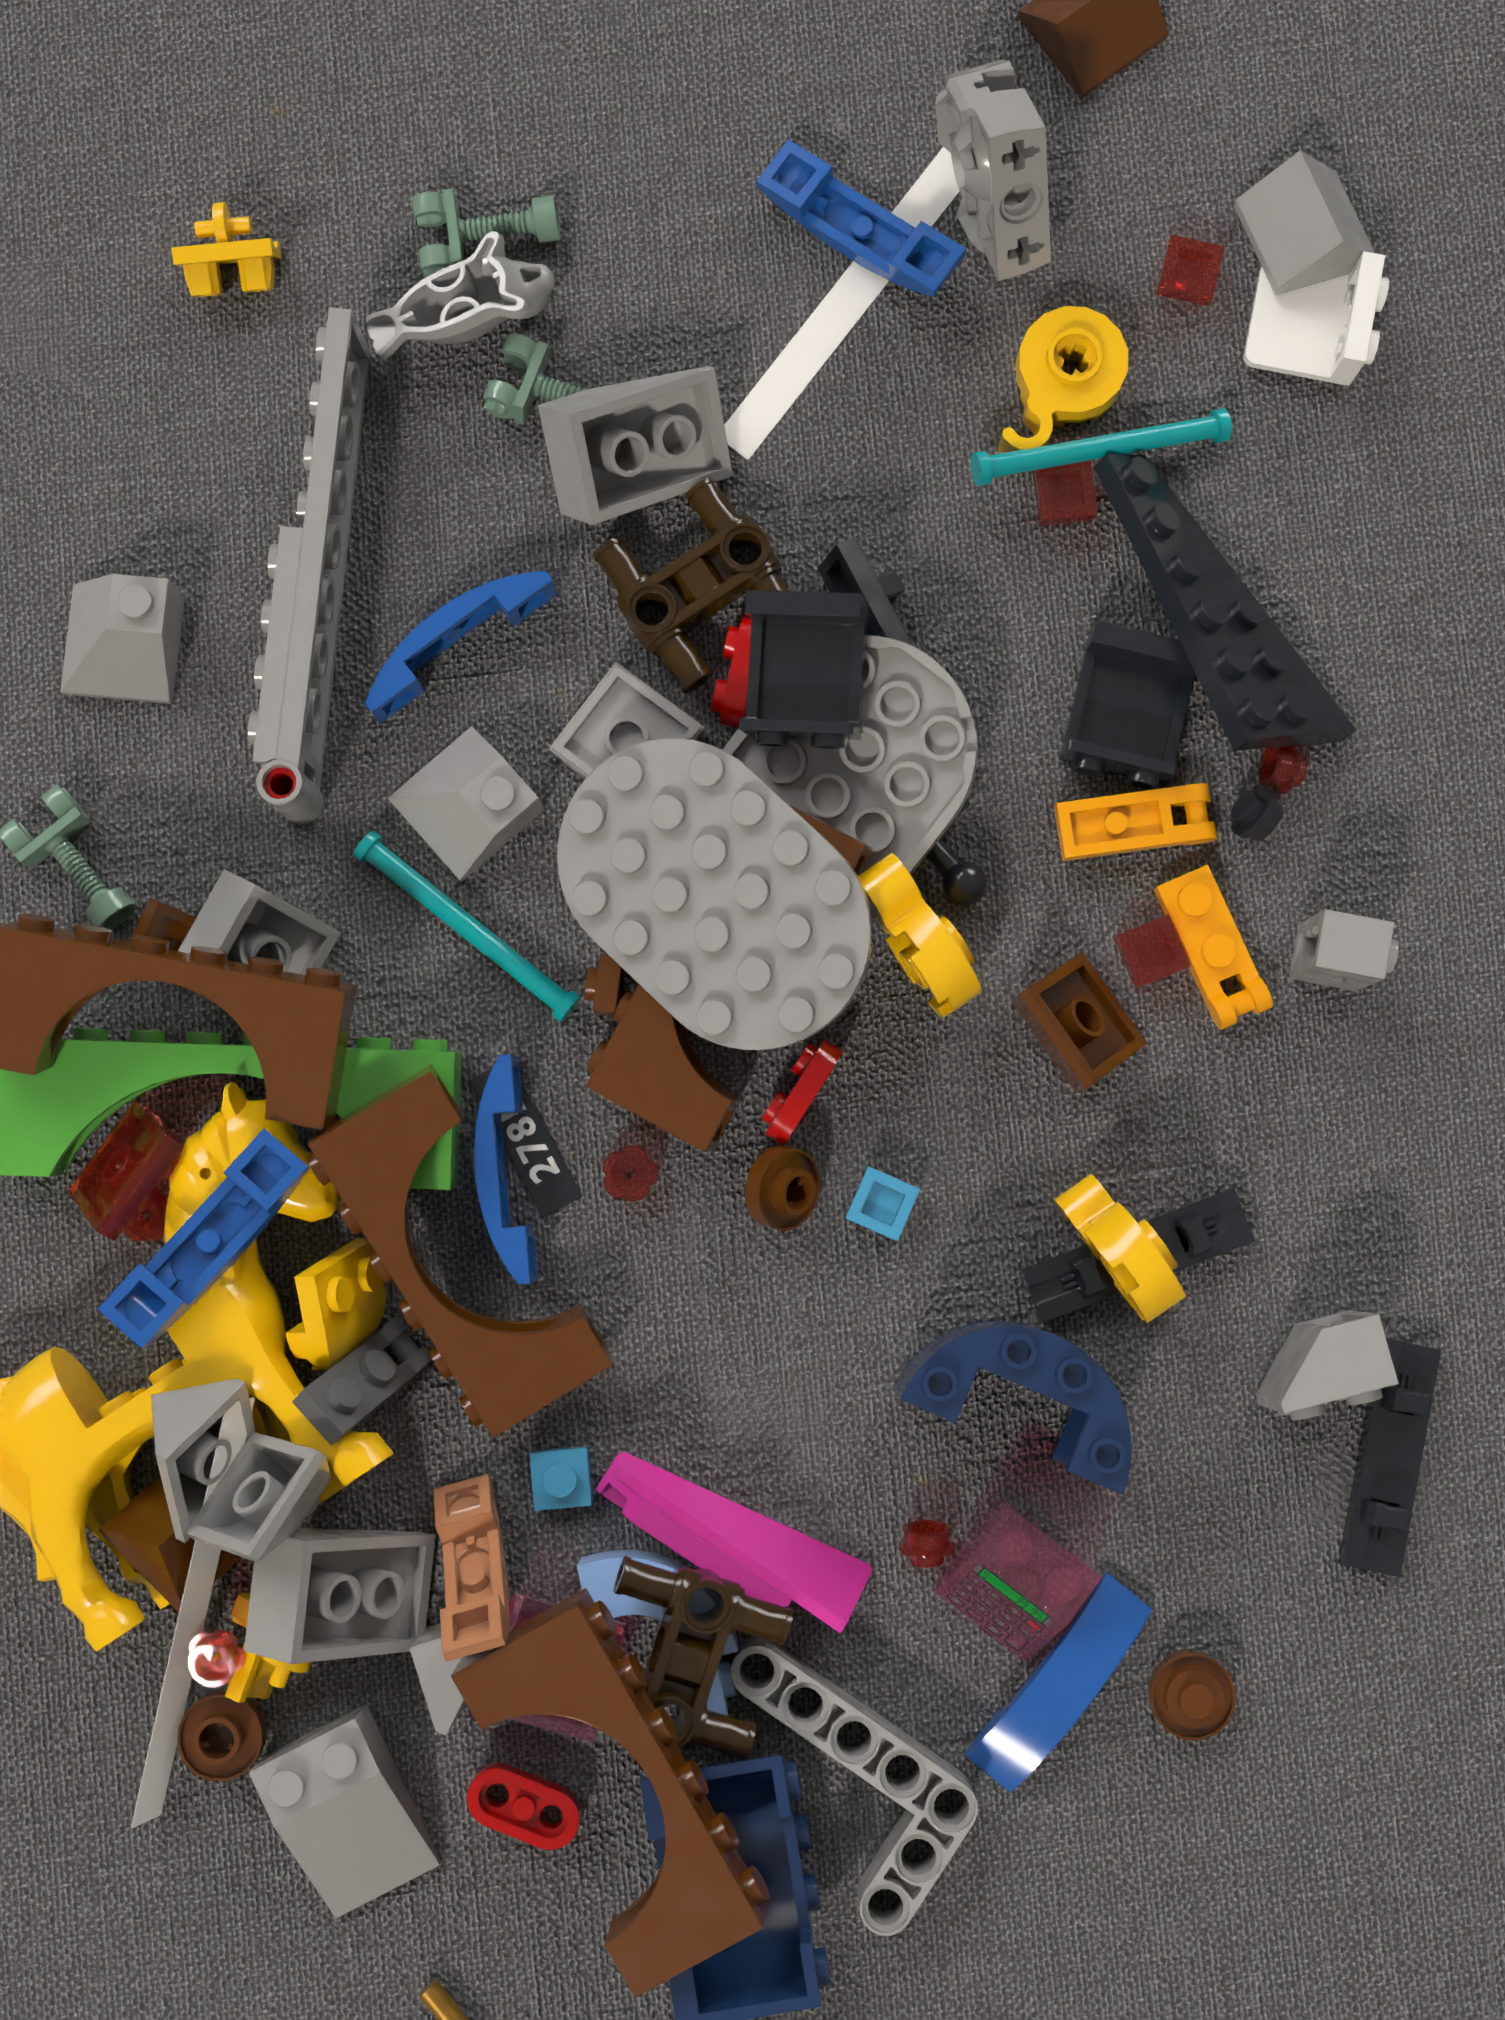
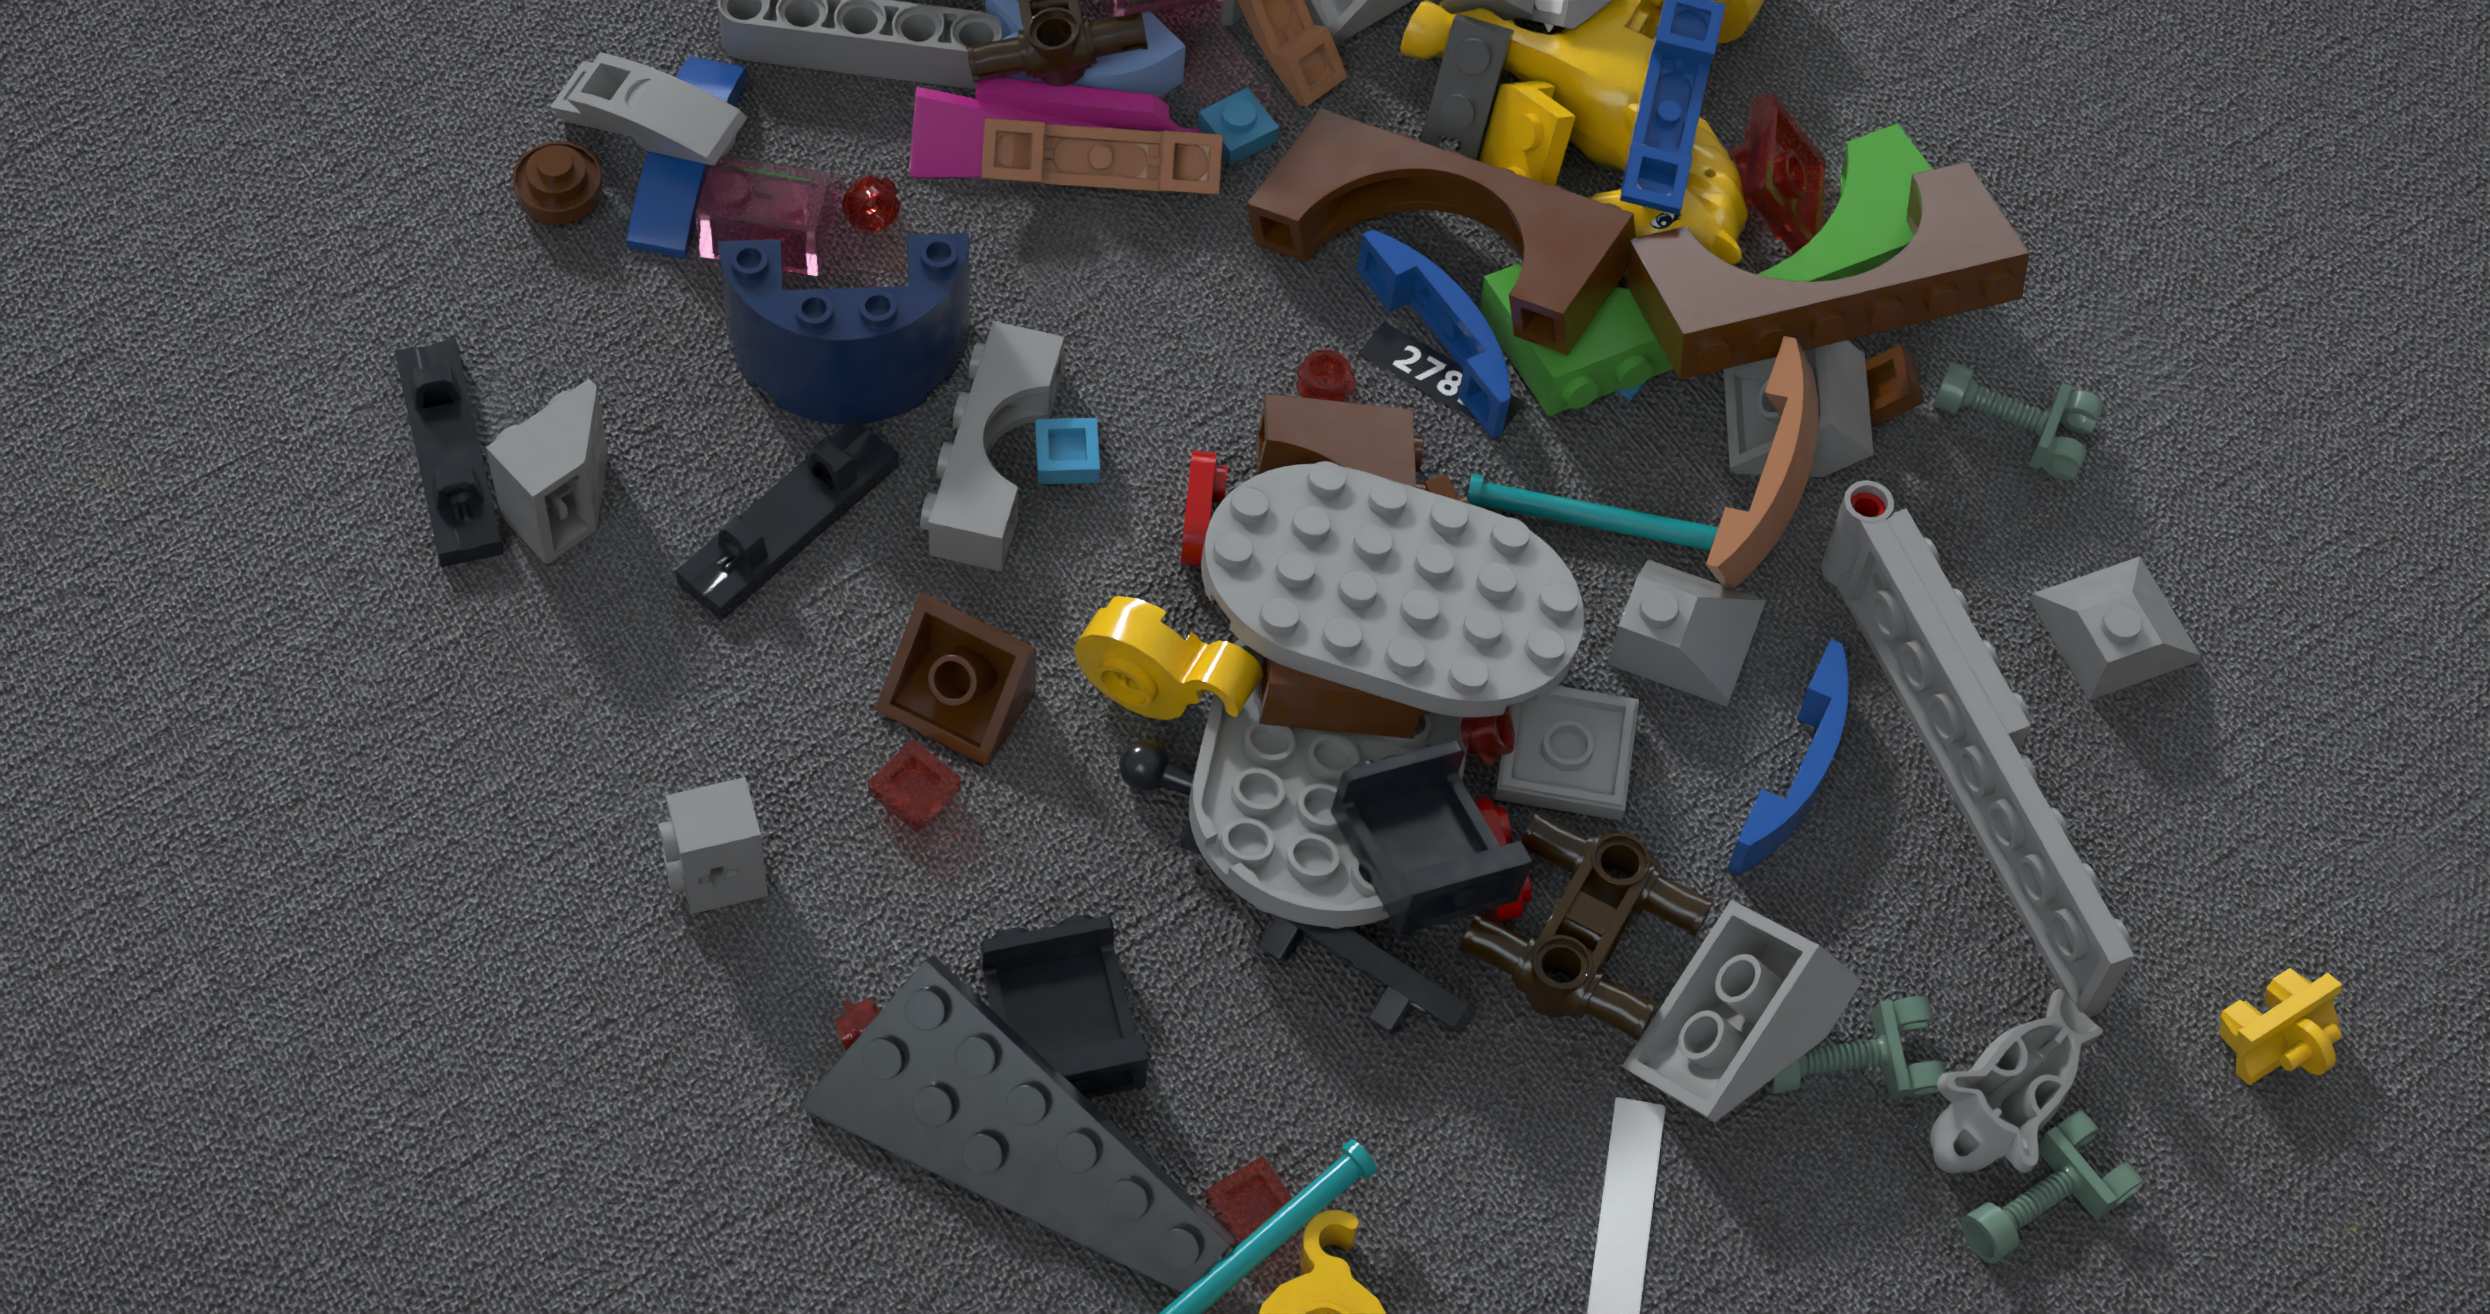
camera: 145 degrees right, 25 degrees down
(275, 918) = (1749, 536): none -> nougat slope
(705, 1492) = (1101, 157): none -> nougat slope
(782, 1188) = (1172, 416): reddish brown plate -> none
(988, 1180) = (975, 505): none -> light grey arch
(1100, 1710) = (651, 108): none -> light grey slope
(1127, 1249) = (813, 476): yellow piece -> none
(1133, 822) = (998, 898): light orange plate -> none
(1213, 946) = (852, 826): light orange plate -> none
(1256, 814) = (869, 964): black plate -> none

